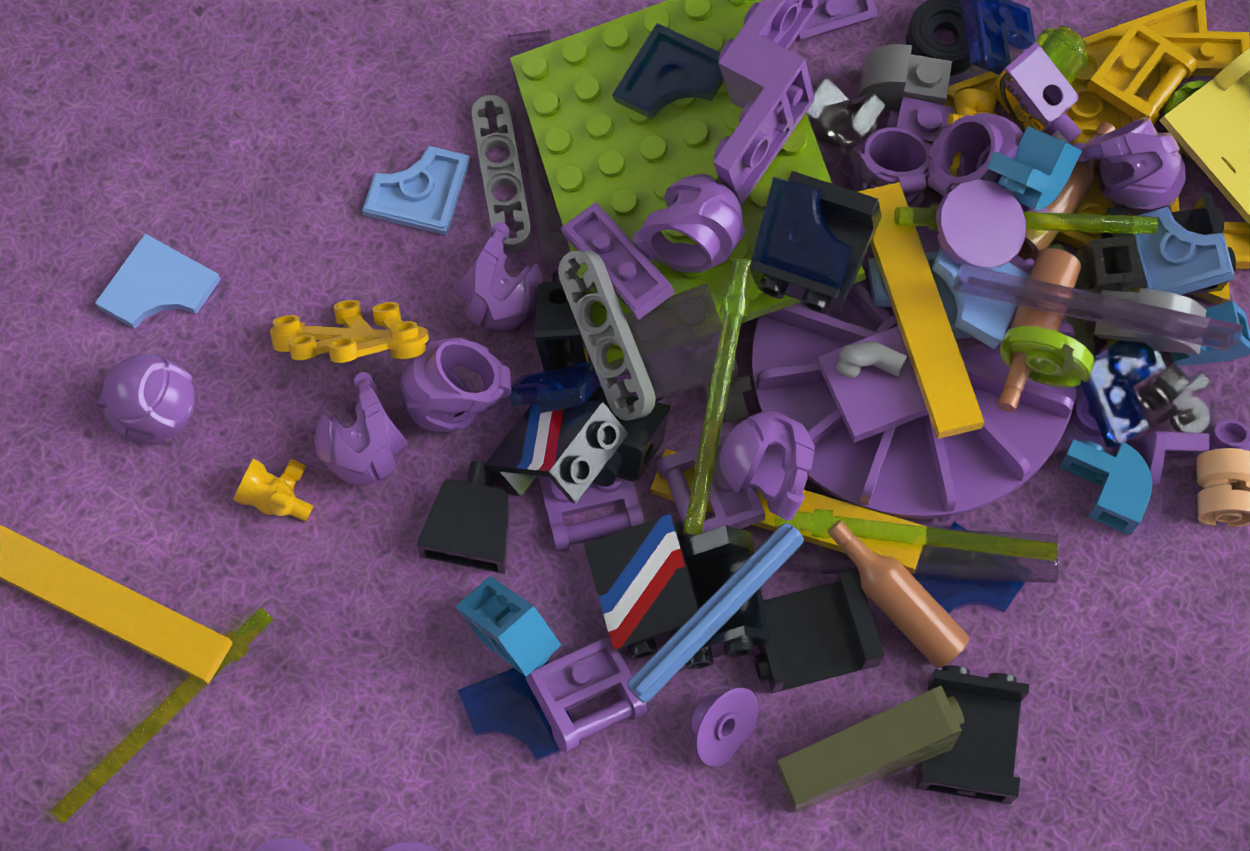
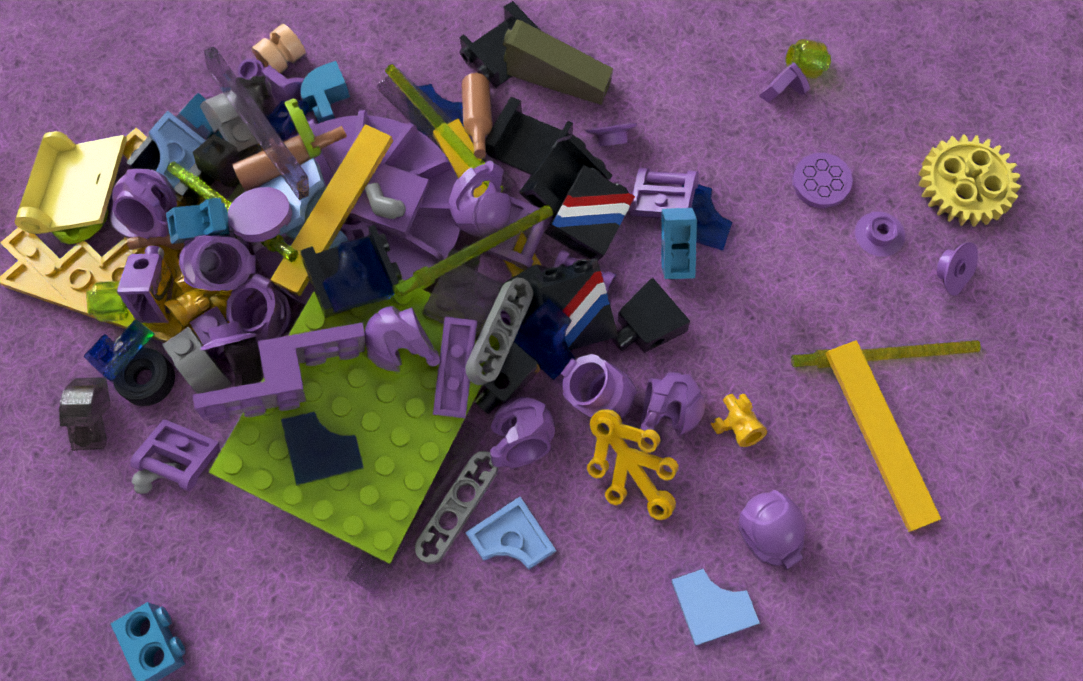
camera: 130 degrees left, 0 degrees up
(715, 613) = (574, 161): medium blue axle -> none
(882, 102) = (226, 334): none -> medium lavender piece
(1131, 65) = (78, 267): yellow plate -> none

